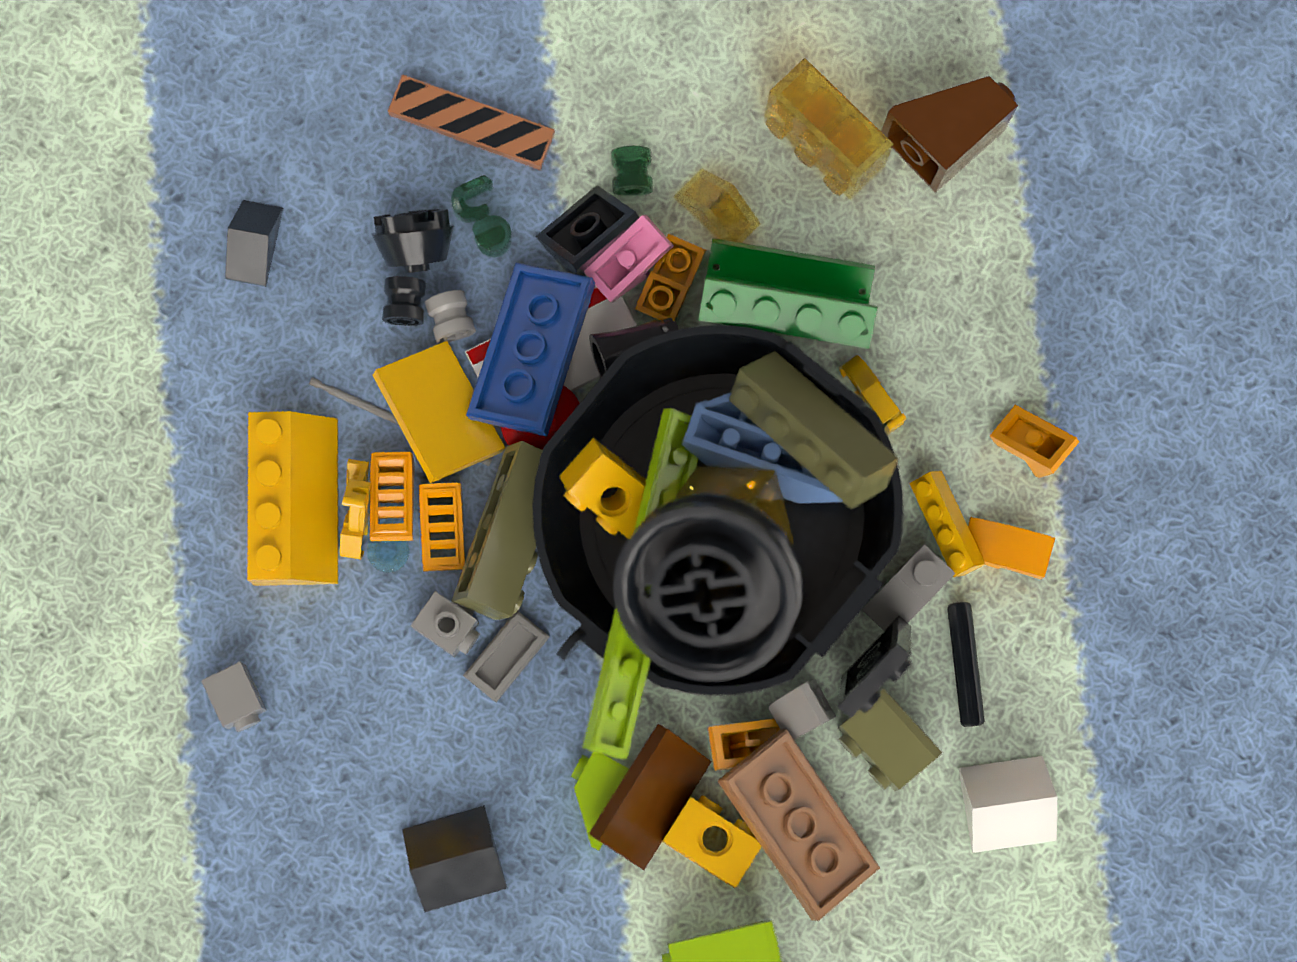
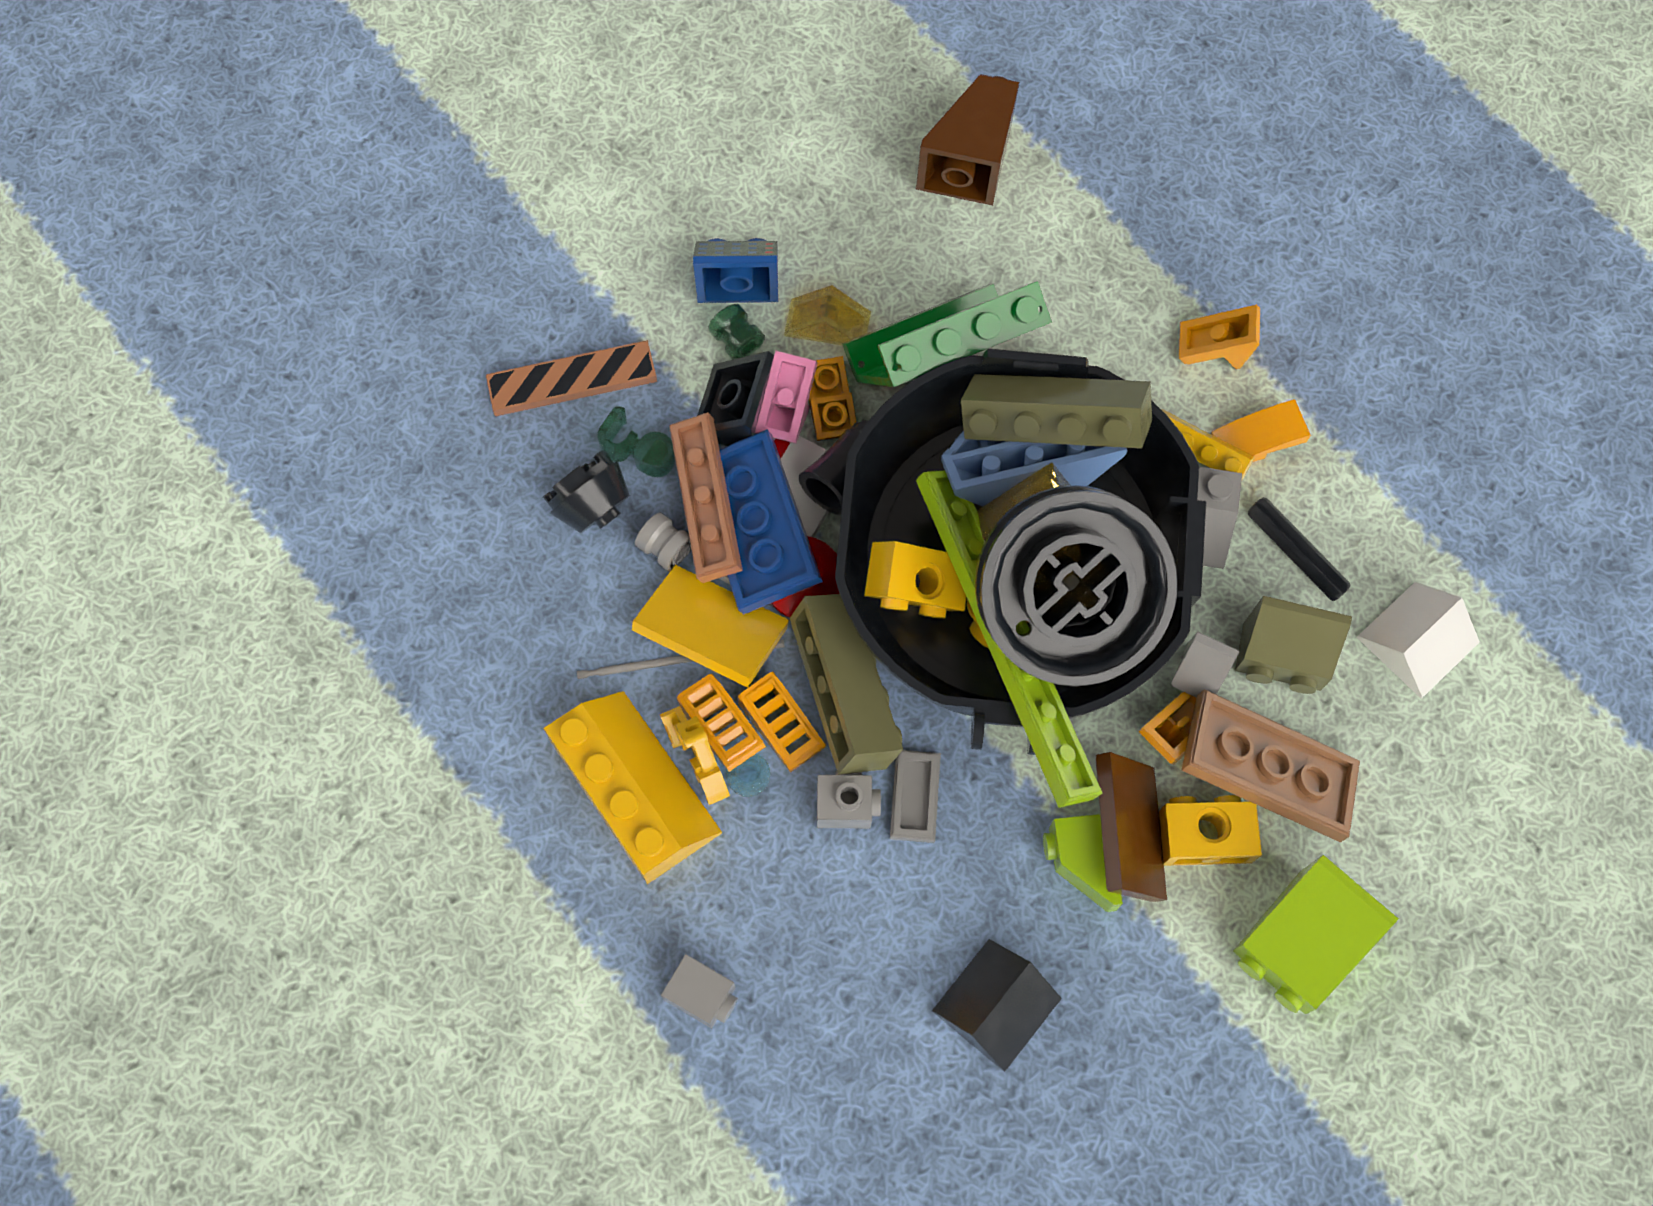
camera: 30 degrees left, 10 degrees down
(252, 242) = (446, 591): slope -> none
(404, 301) = (615, 553): black wheel -> none
(503, 302) = (705, 498): none -> nougat tile
(668, 114) = (736, 271): none -> blue slope
(826, 130) = (876, 199): clear yellow brick -> none
(880, 661) = (1243, 584): black plate -> none

